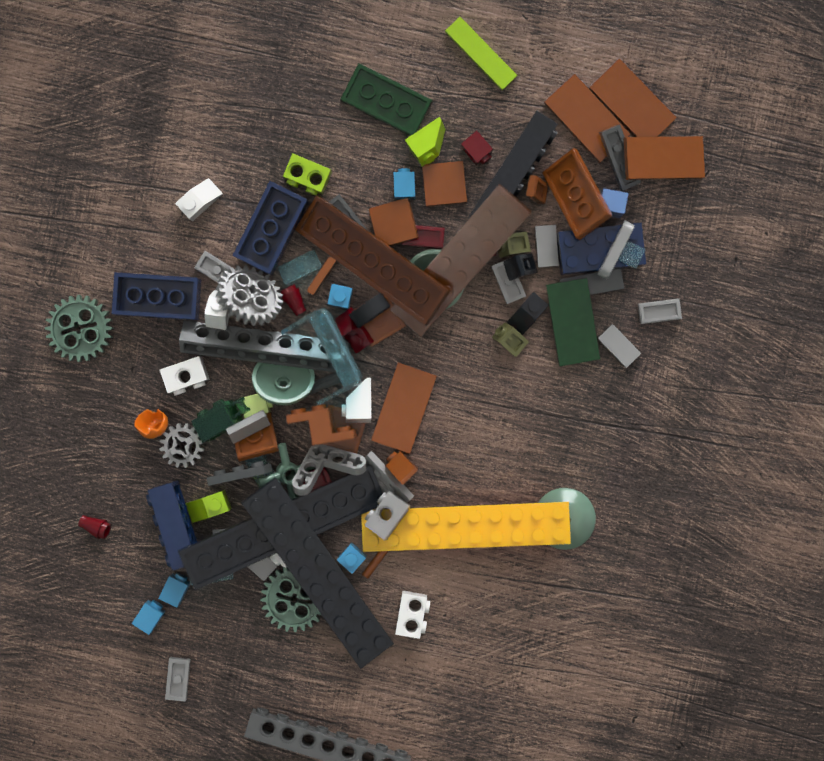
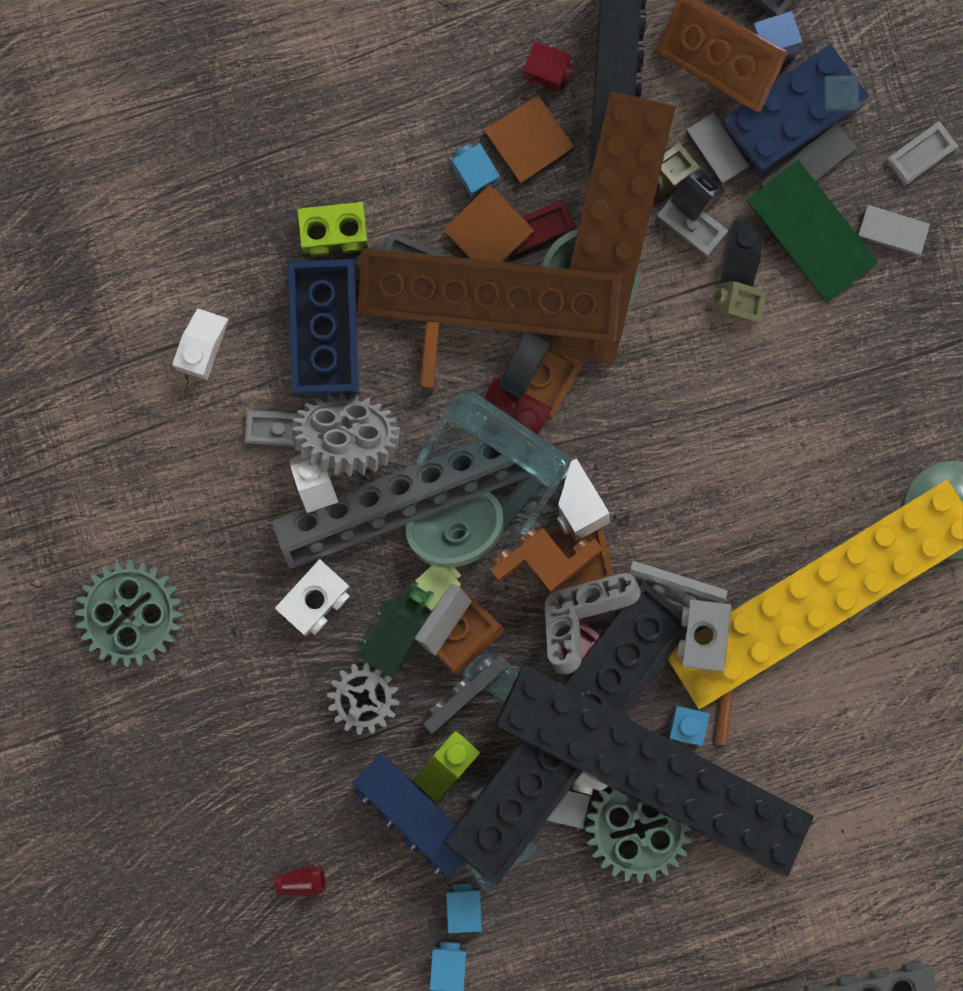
camera: 30 degrees left, 5 degrees down
(151, 424) = (304, 692): orange hair -> none
(156, 296) = (214, 509): dark blue brick -> none
(281, 469) = (523, 651): sand green bar -> none
(293, 299) = (408, 410): dark red cone -> none
(299, 267) = (392, 362): clear light blue slope -> none
(340, 296) = (471, 370): dark azure brick -> none
(386, 100) = (385, 70): dark green tile -> none
(401, 466) = (687, 559): dark orange slope -> none
(404, 408) = (644, 478): dark orange tile -> none
(407, 614) = (808, 763): white brick -> none
(427, 142) = (474, 95): lime slope -> none
(537, 189) = (663, 76): dark orange tile -> none
(615, 250) = (817, 97): light grey beam -> none

